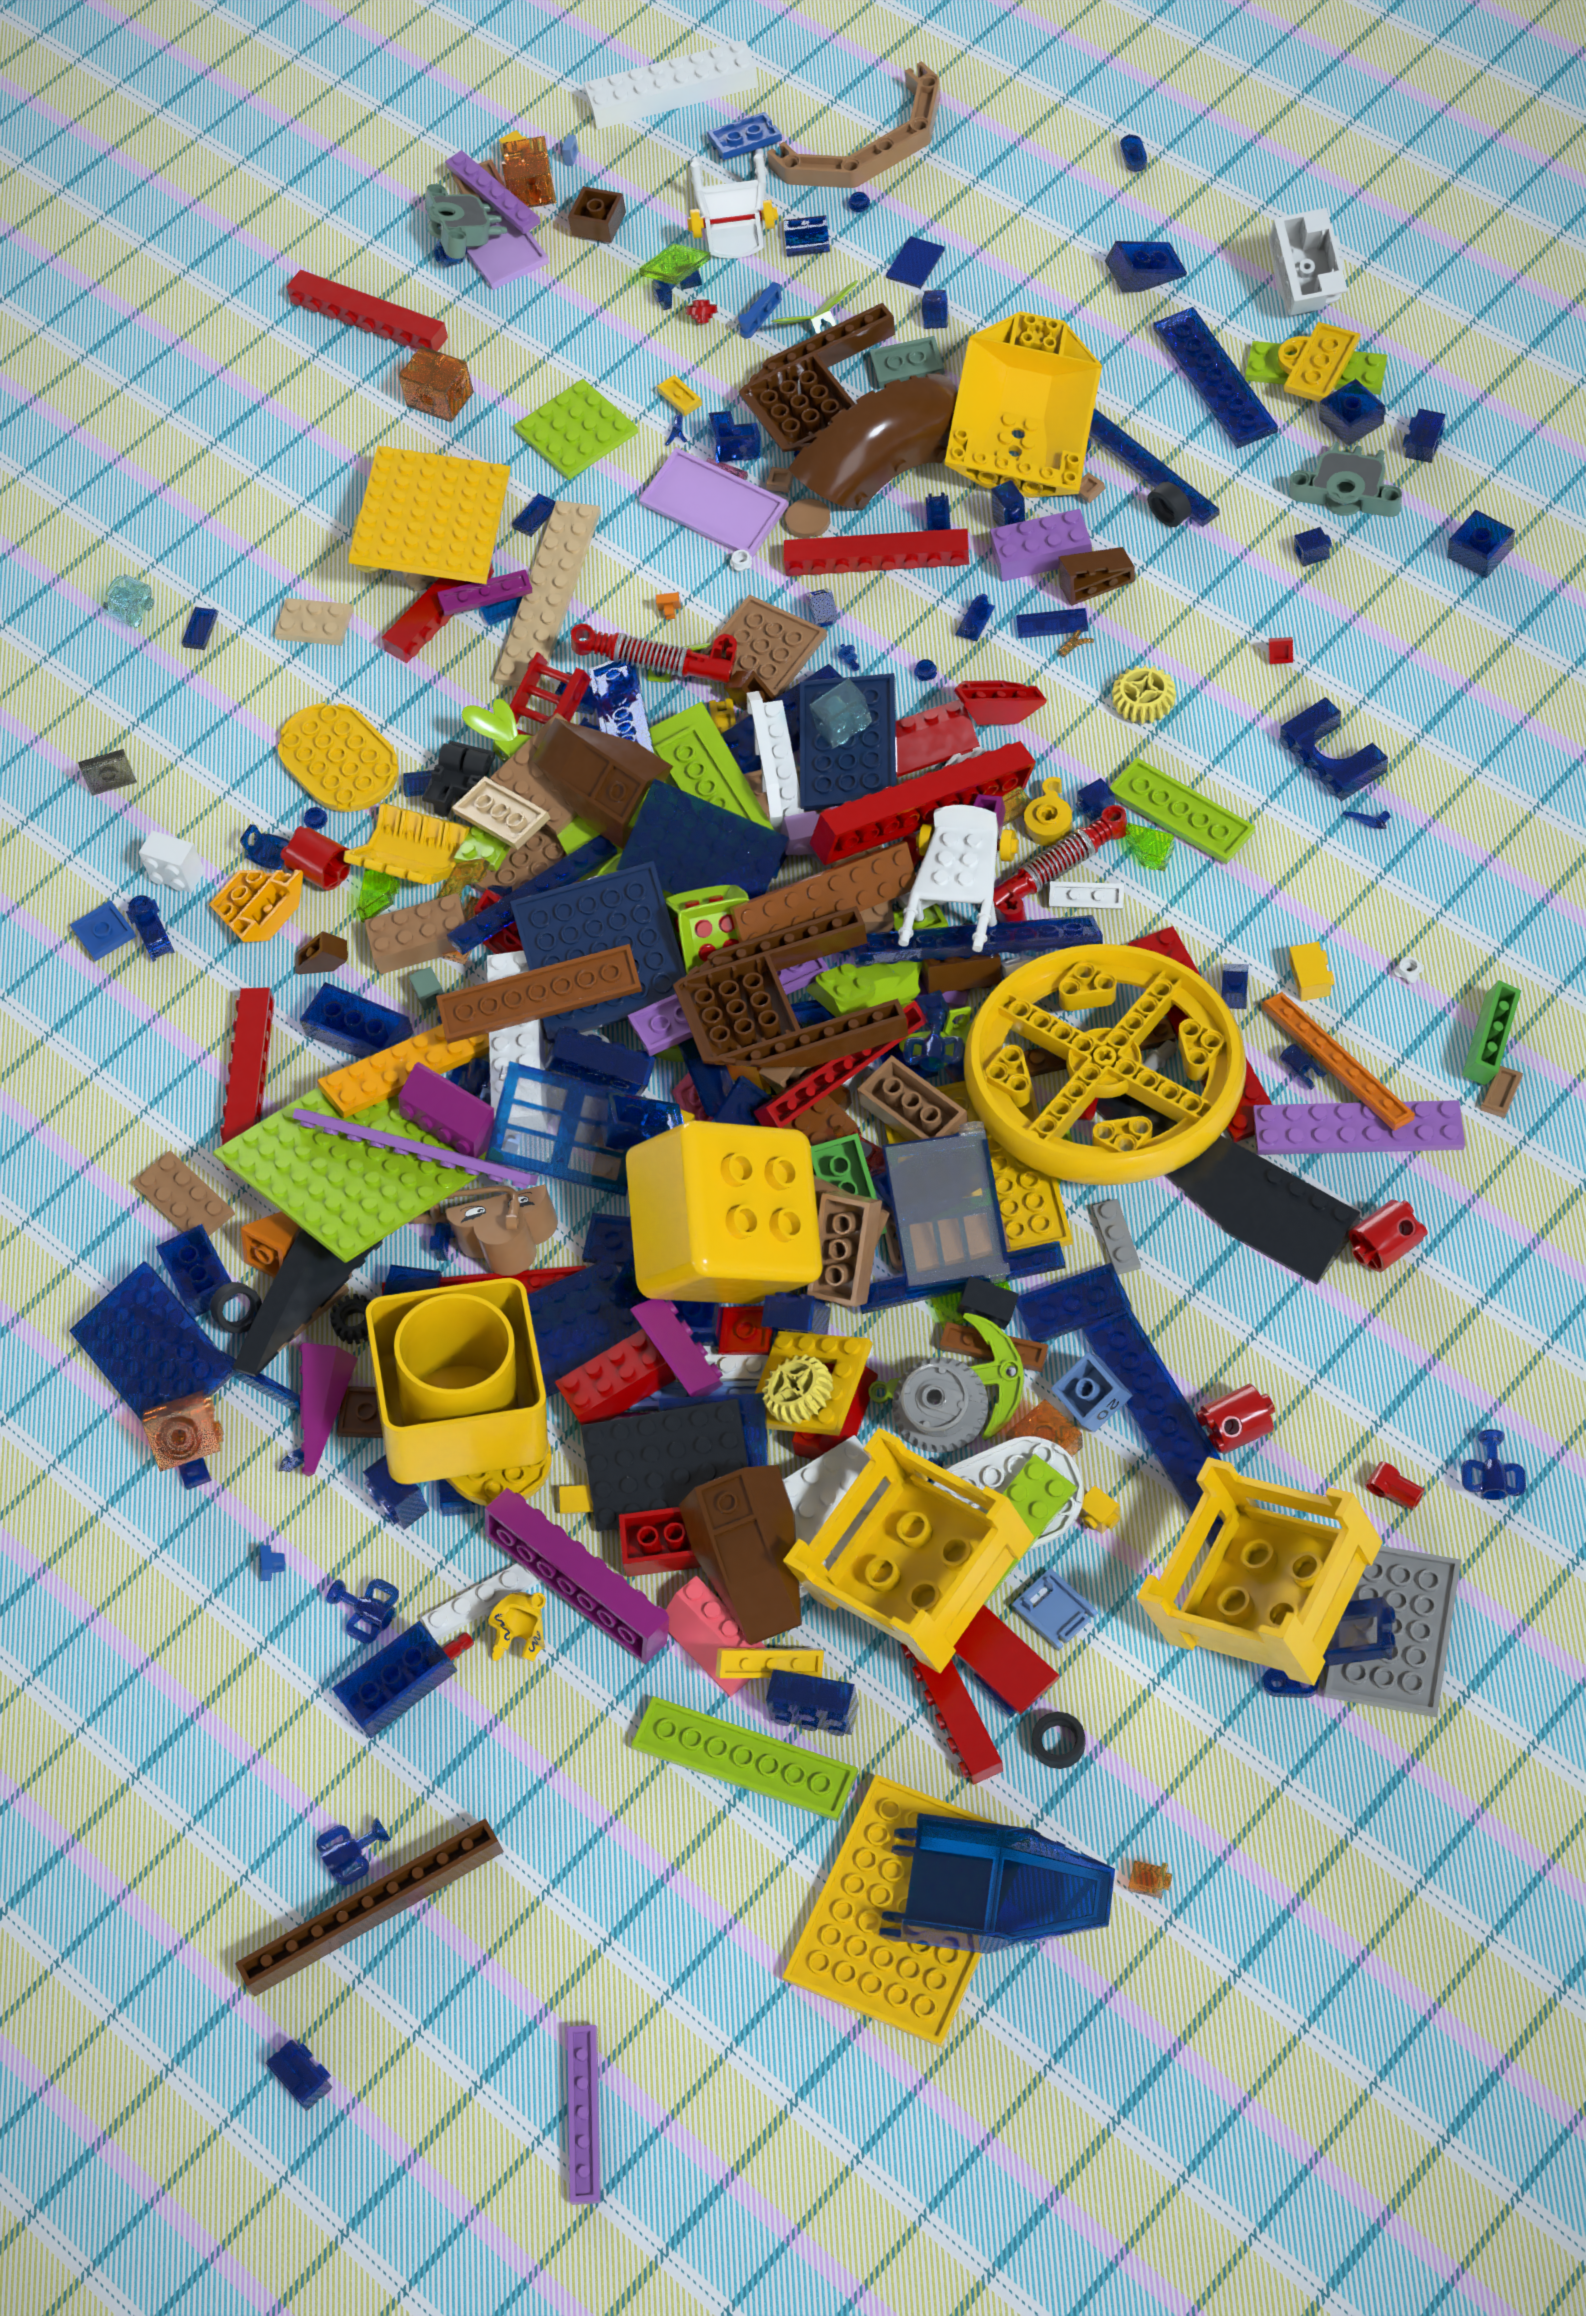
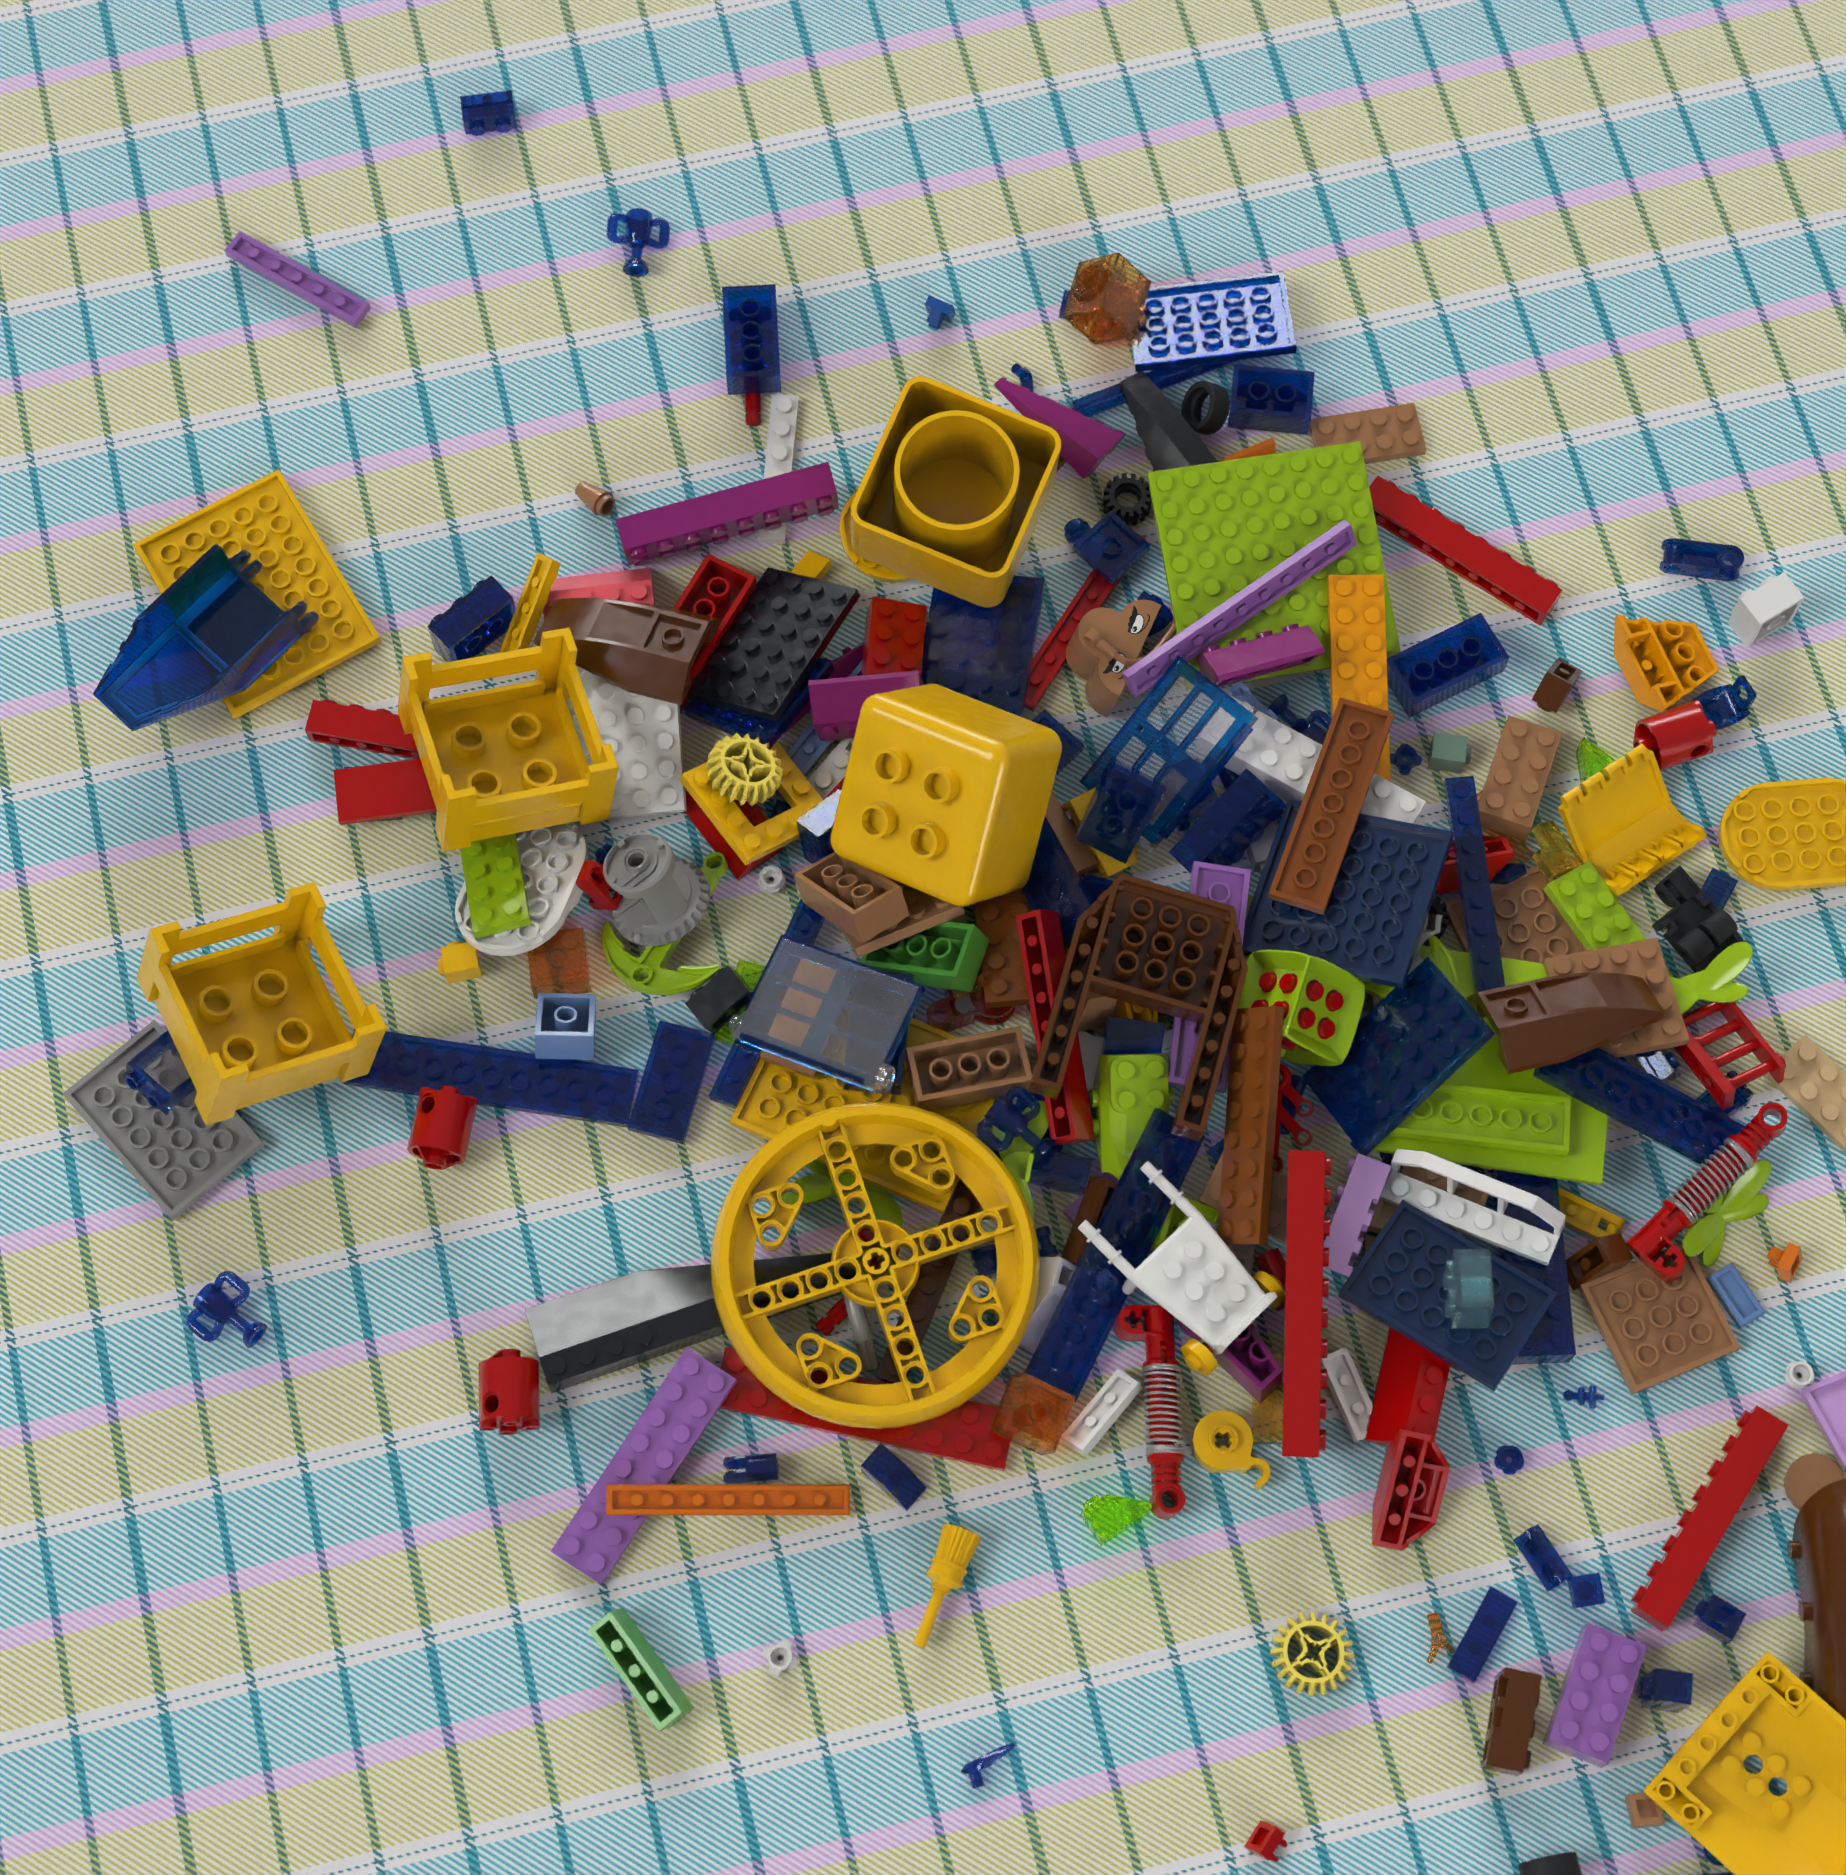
camera: 115 degrees right, 10 degrees up
(103, 930) = (1731, 519): blue plate -> none
(315, 818) = (1737, 772): clear blue plate -> none
(369, 1609) = (835, 360): clear blue piece -> none
(369, 1907) = (575, 224): reddish brown brick -> none
(501, 813) = (1602, 921): tan plate -> none
(521, 1617) = (740, 454): yellow piece -> none
(627, 1703) = (595, 498): none -> medium nougat cone
(712, 620) = (1735, 1295): none -> medium blue tile
(745, 1758) = (476, 554): lime plate -> none
(822, 607) = (1673, 1411): clear blue slope -> none
(963, 1446) = (594, 884): none -> red leg
(969, 1342) = (660, 1007): dark orange plate -> none
(976, 585) = (1586, 1590): none -> clear blue plate
(1052, 1720) = (286, 773): black tyre -> none
(1058, 1614) = (401, 869): medium blue container -> none
(1094, 799) = (1212, 1504): clear blue brick -> none
(1116, 1236) = (702, 1167): light grey plate -> none
(1125, 921) = (1032, 1413): none -> clear orange brick
(1150, 1879) = (125, 779): clear orange bracket -> none
(1182, 810) = (1136, 1581): lime plate -> none
(1270, 910) = (946, 1572): none -> yellow piece
(1310, 971) = (848, 1557): yellow brick -> none
(1340, 776) = (1135, 1771): clear blue arch -> none
(1388, 1482) = (289, 1216): red piece -> none
(1501, 1092) = (574, 1627): medium nougat tile -> none

